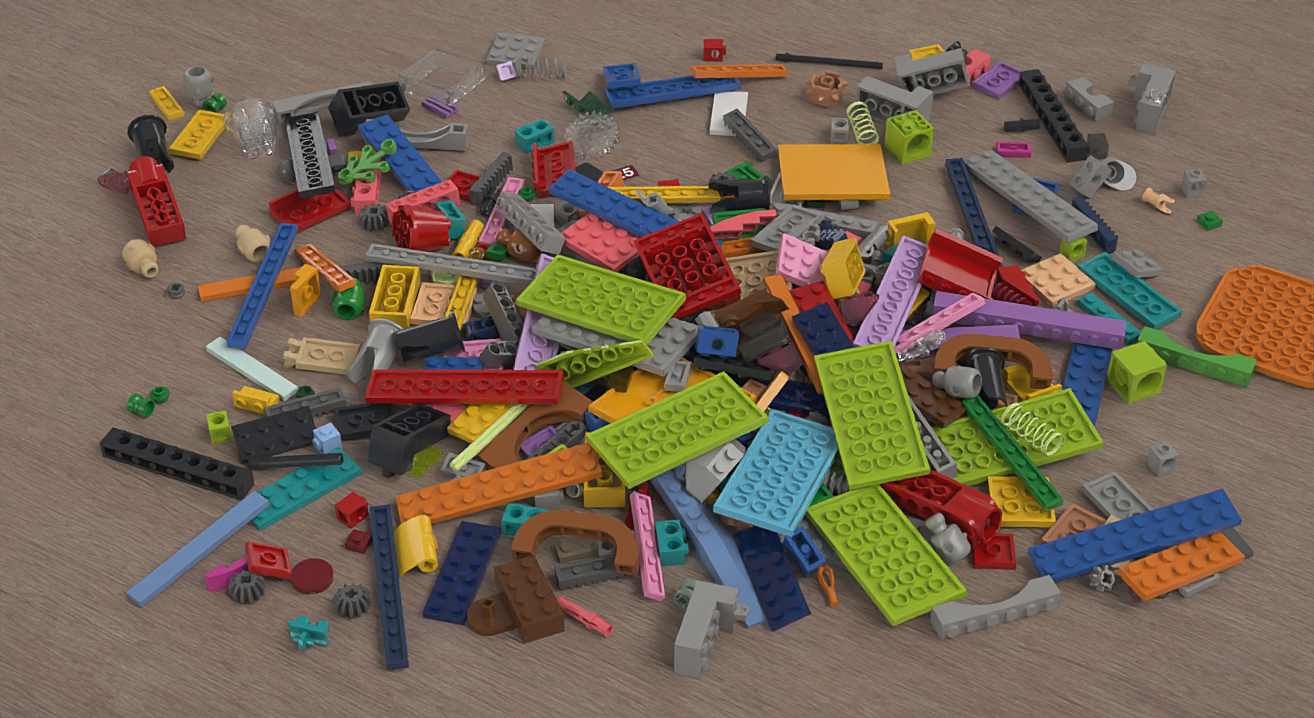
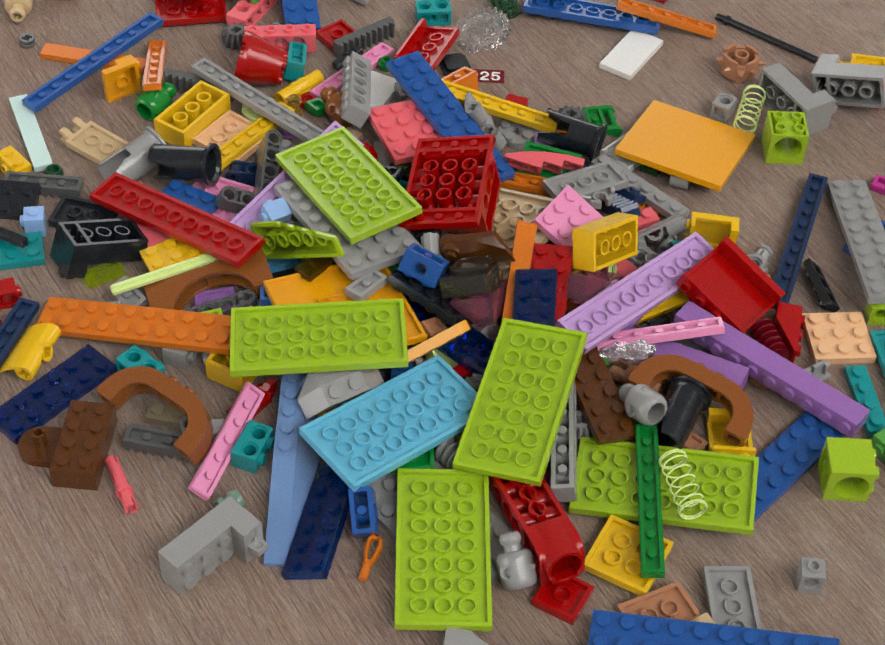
camera: 25 degrees right, 5 degrees up
(252, 243) = (114, 20): tan piece -> none
(547, 348) = (275, 211): none -> light blue brick
(749, 135) = (630, 81): dark grey gear -> none

